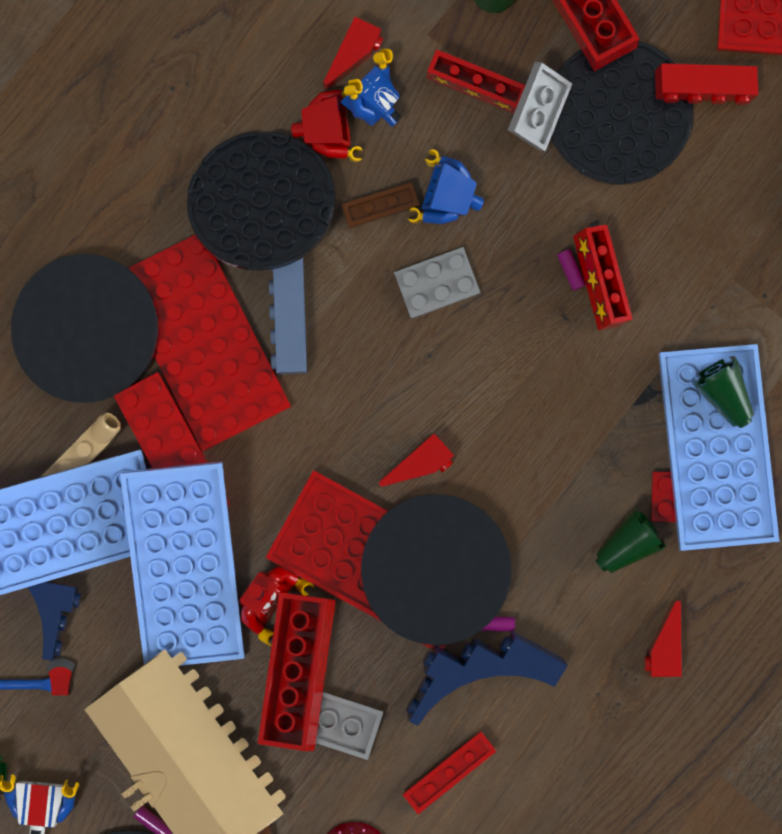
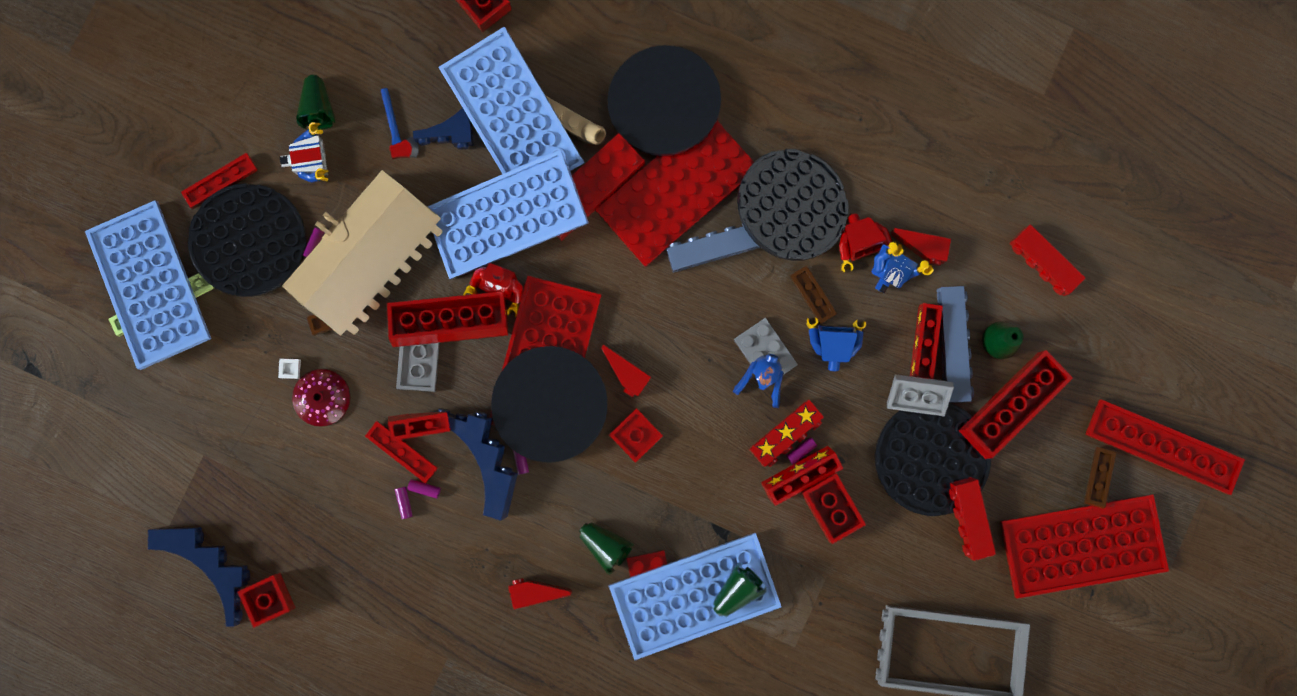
camera: 80 degrees right, 0 degrees up
(421, 741) = (417, 424): none -> red slope
(465, 286) = (767, 371): none -> blue piece
(483, 46) = (954, 342): none -> sand blue brick
(501, 471) = (635, 435): none -> red plate
(502, 755) = (424, 489): none -> magenta hinge
(514, 785) = (403, 502): none -> magenta hinge
(545, 283) = (788, 431): none -> red brick
(653, 249) = (833, 508): none -> red brick

